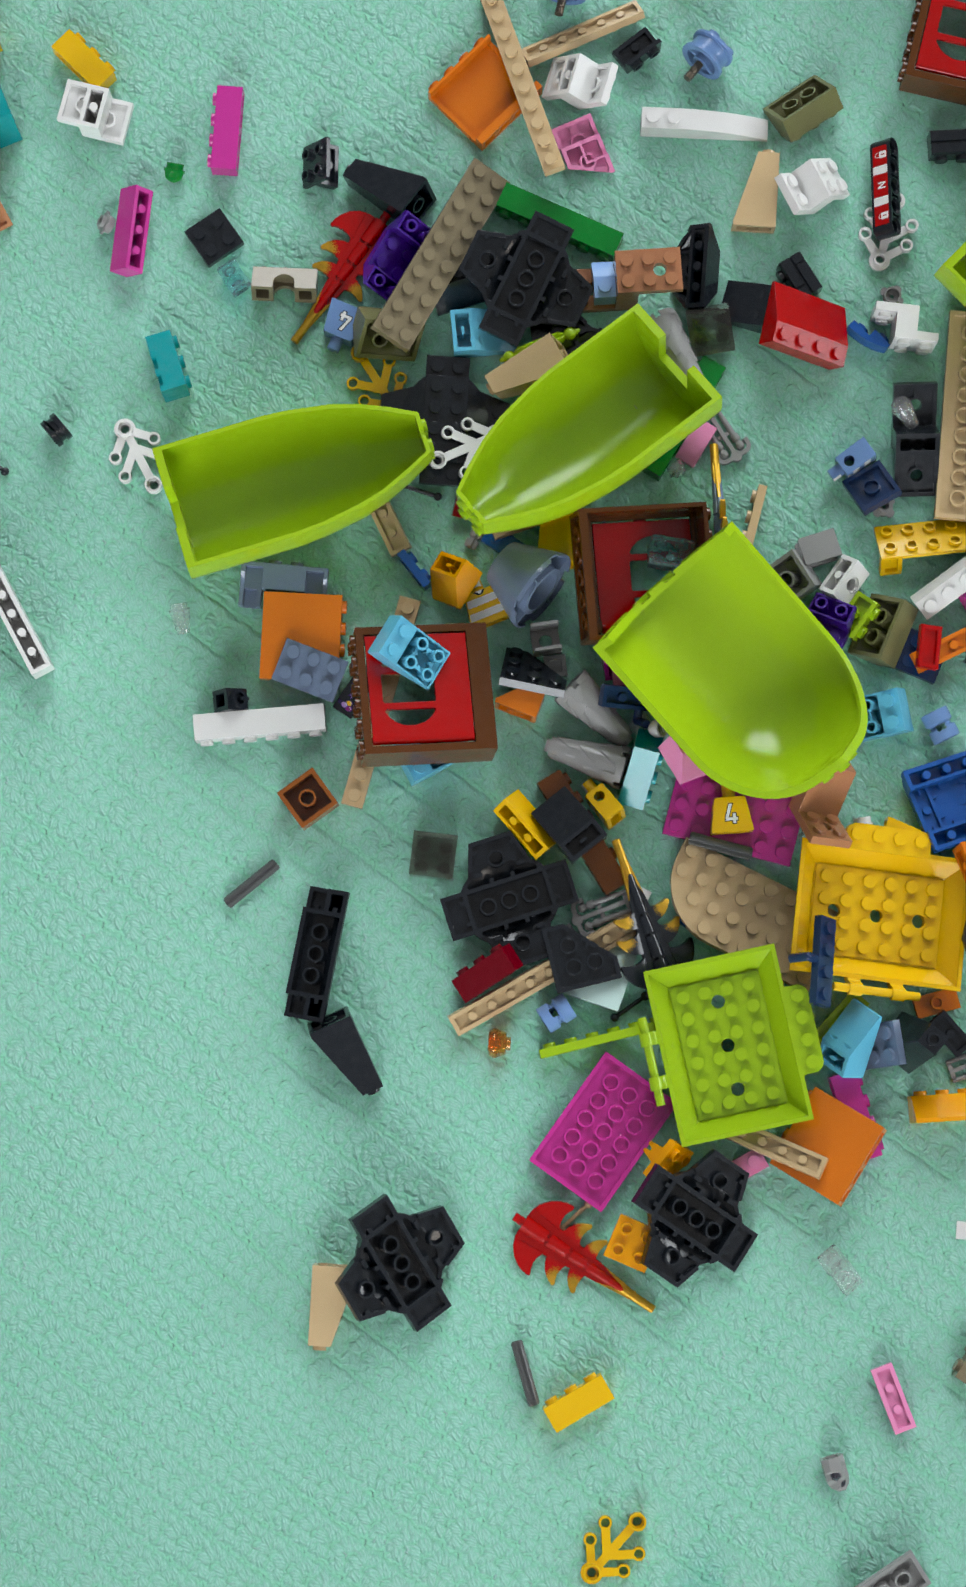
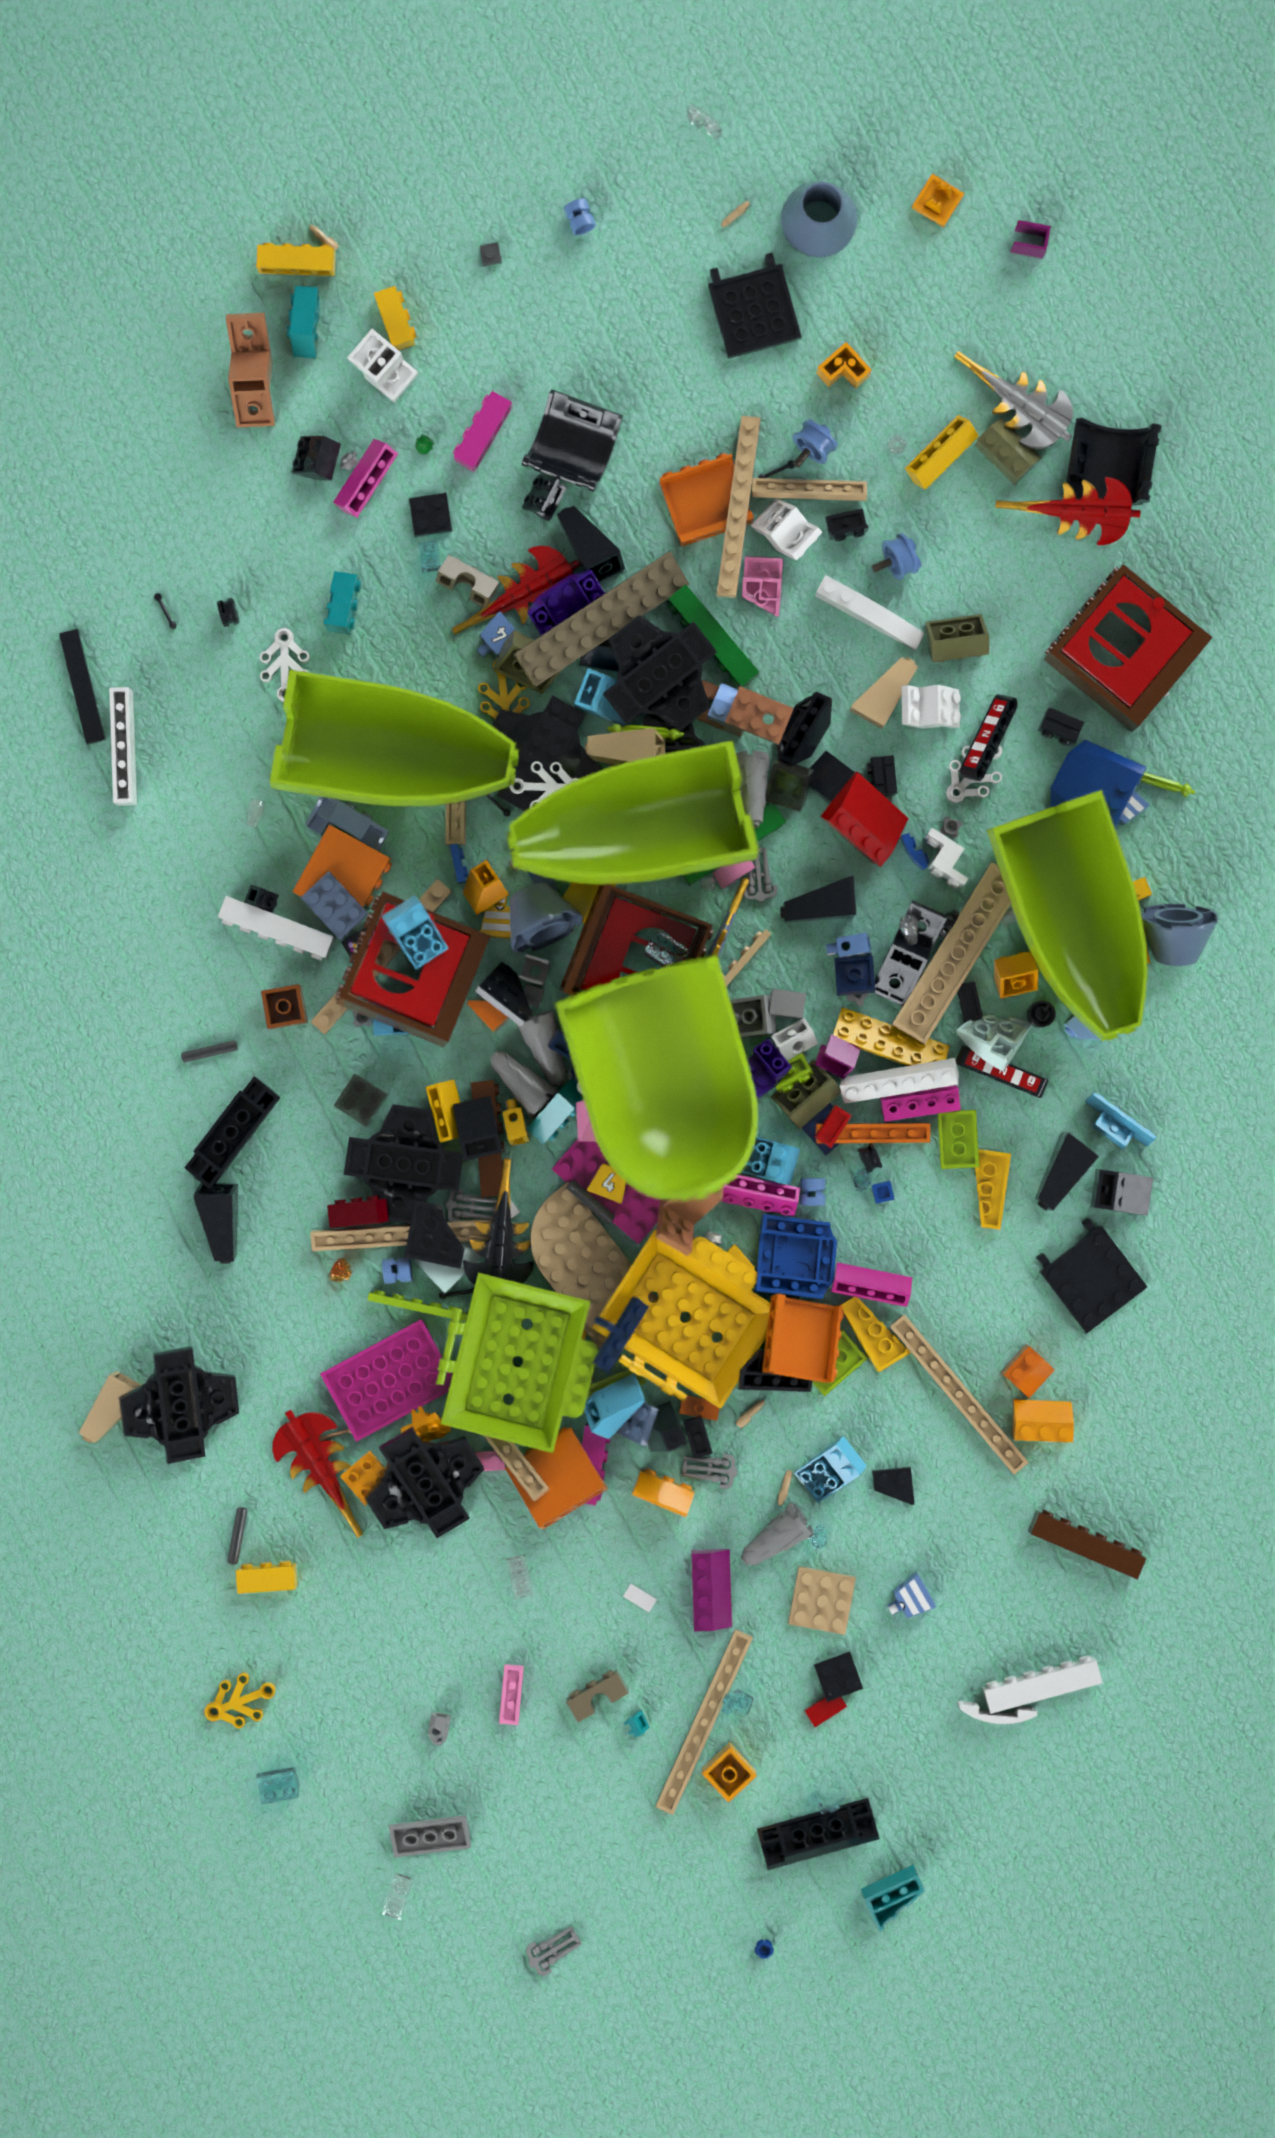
camera: 30 degrees right, 5 degrees up
(71, 235) = (316, 457): none -> black slope
(323, 94) = (574, 440): none -> black hinge
(390, 779) = (358, 1021): none -> light grey plate
(551, 19) = (789, 465): none -> black hinge
(807, 429) = (825, 903): none -> black slope
(893, 753) = (761, 1195): none -> dark pink brick
(898, 577) = (837, 1057): none -> magenta piece
(942, 385) = (951, 920): none -> black gear

